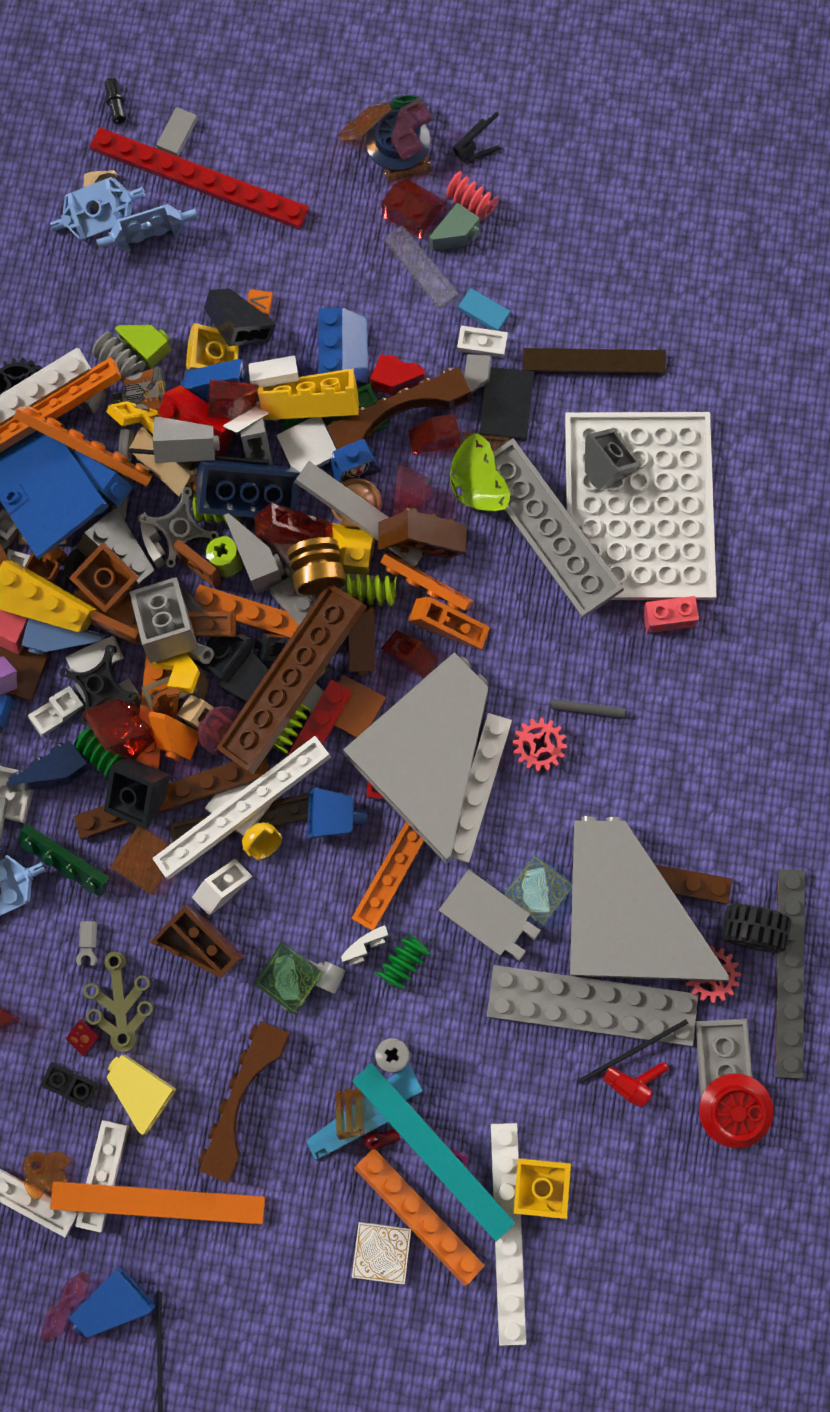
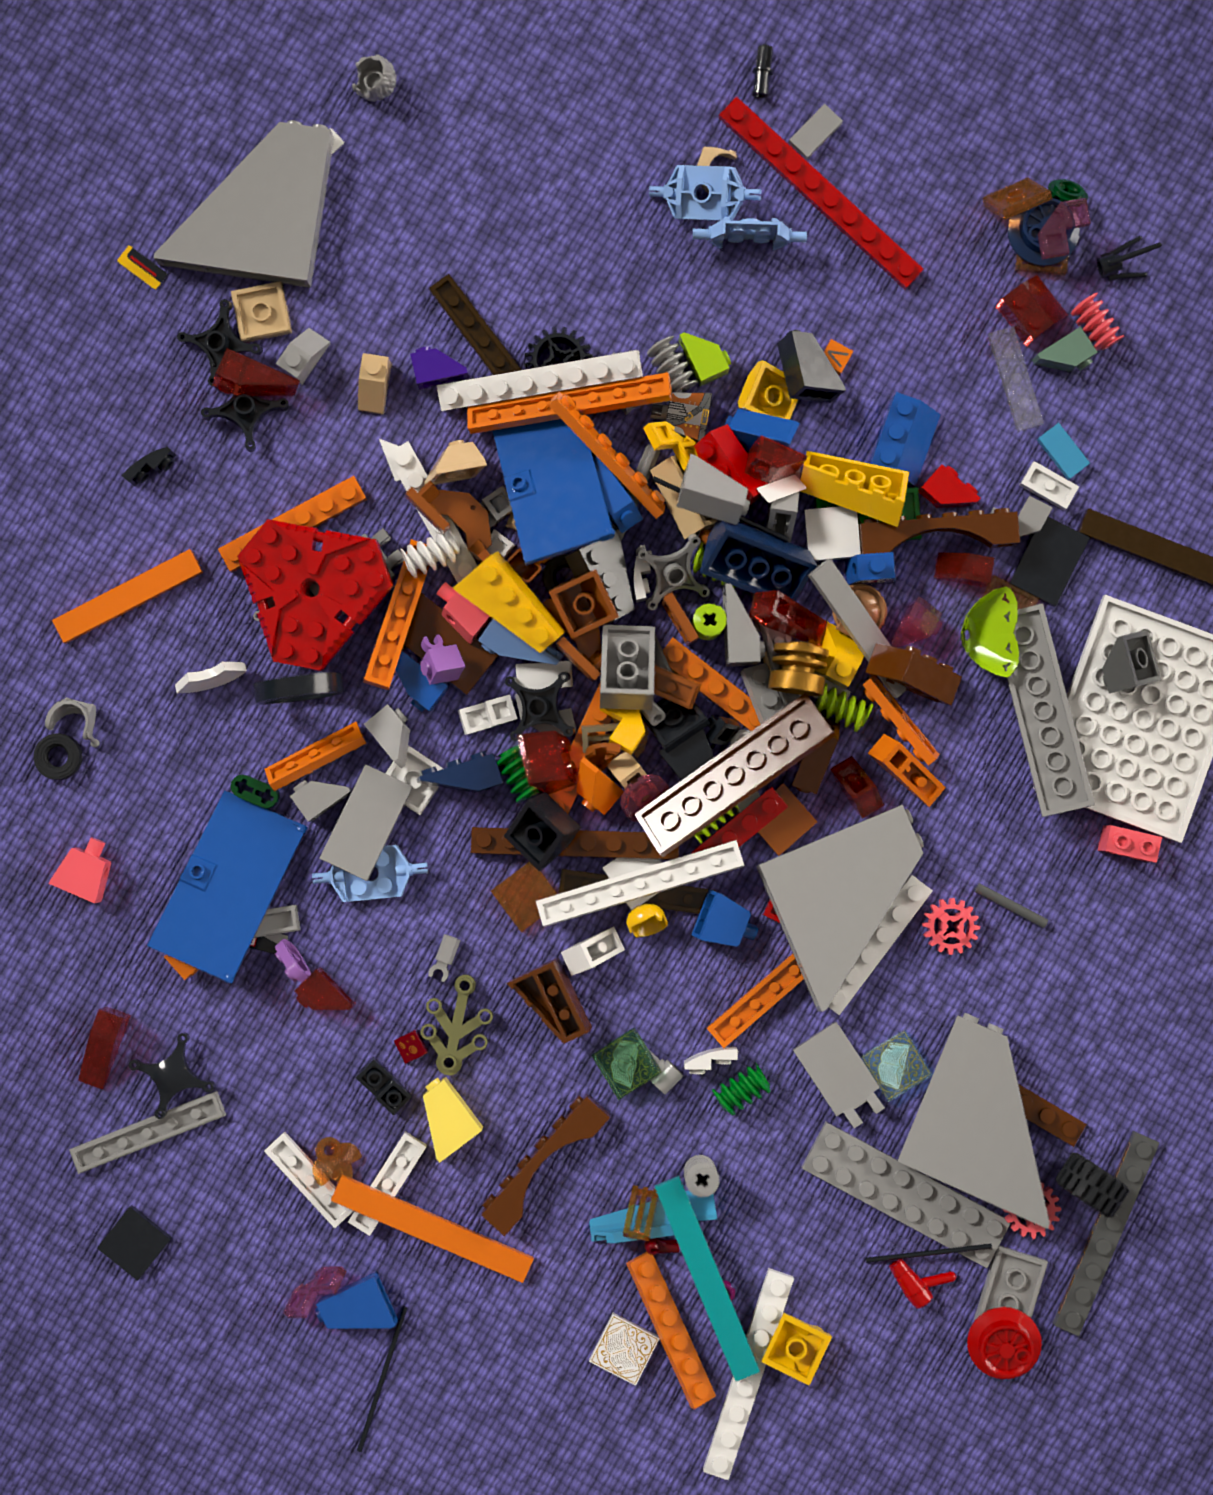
camera: 10 degrees right, 10 degrees up
(63, 860) = (451, 873): dark green plate -> none
(274, 372) = (825, 442): white tile -> none

